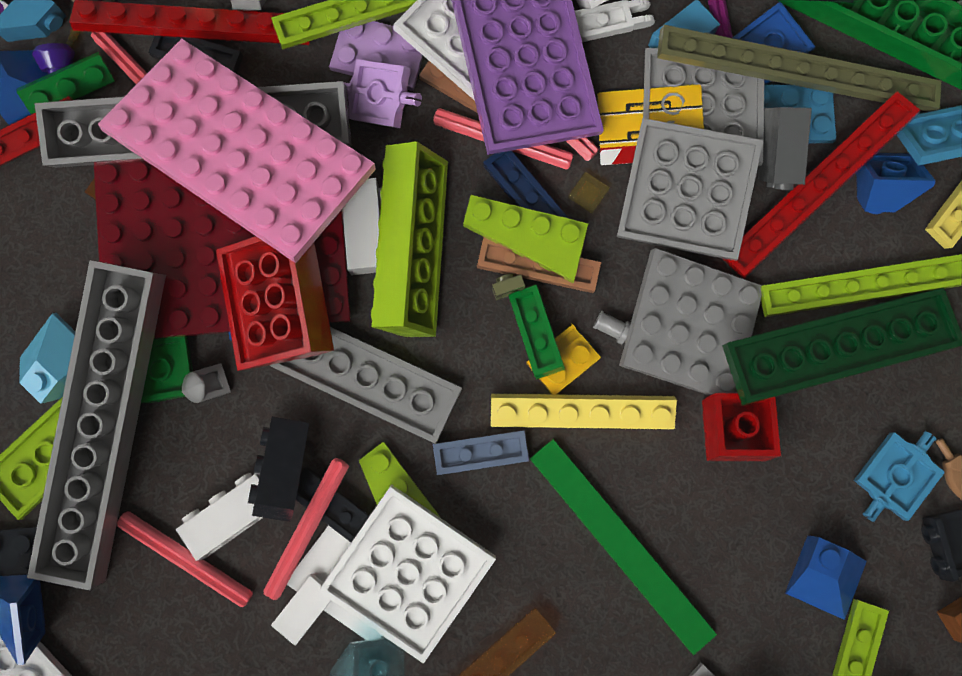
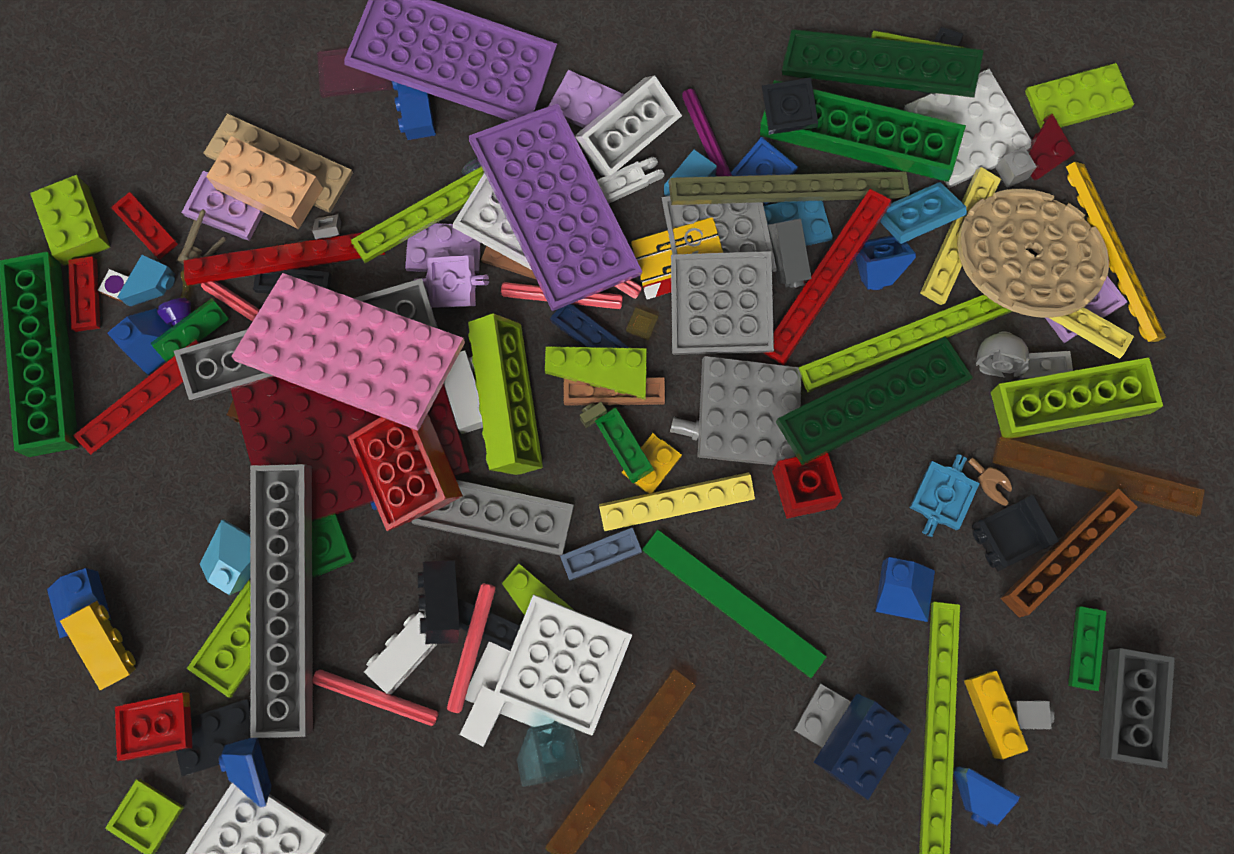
camera: 10 degrees left, 5 degrees down
(205, 384) = (361, 549): light grey plate -> none

